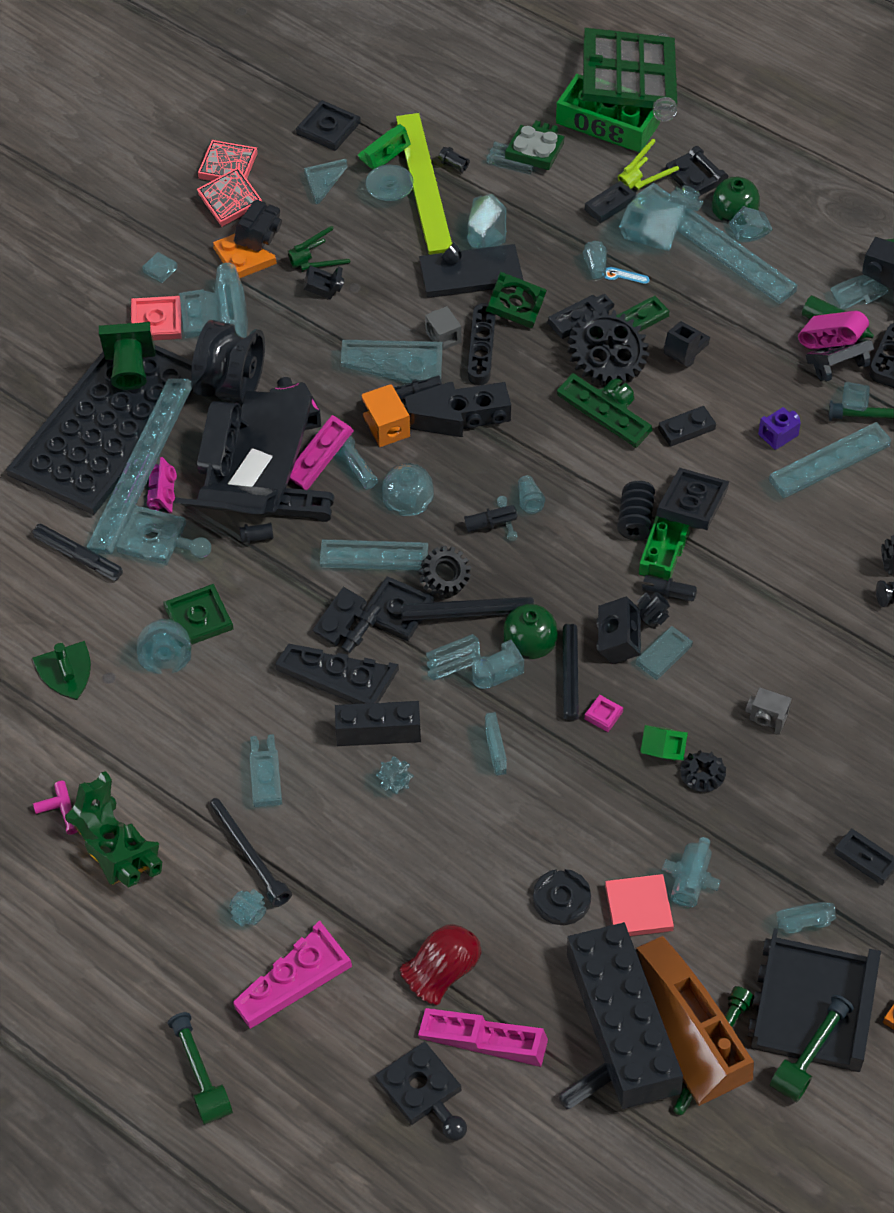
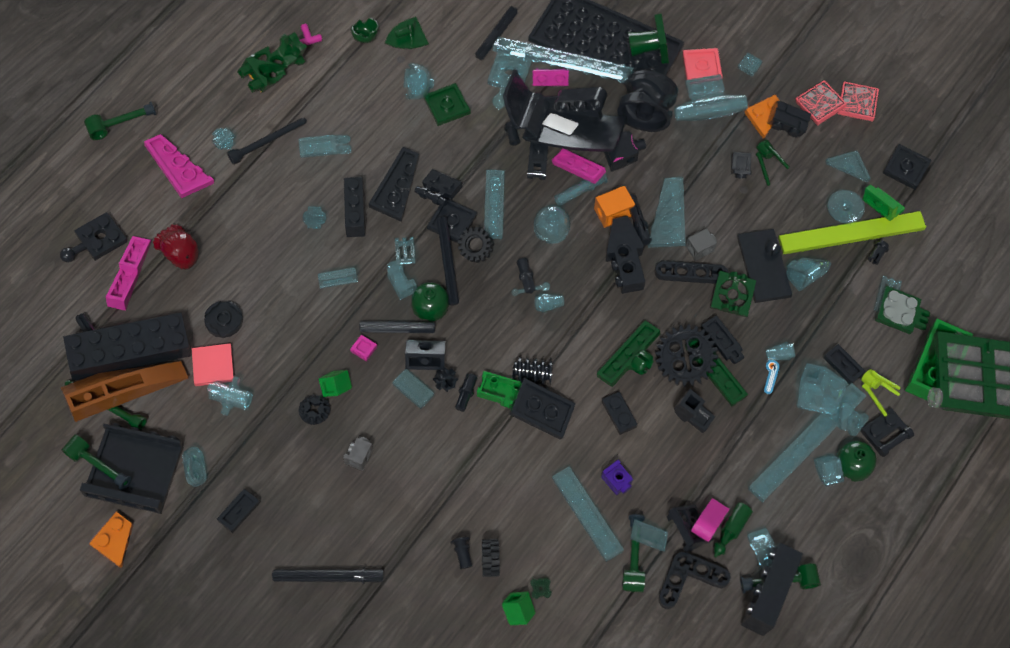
camera: 85 degrees right, 10 degrees up
(59, 716) = (365, 31): none -> dark green hair

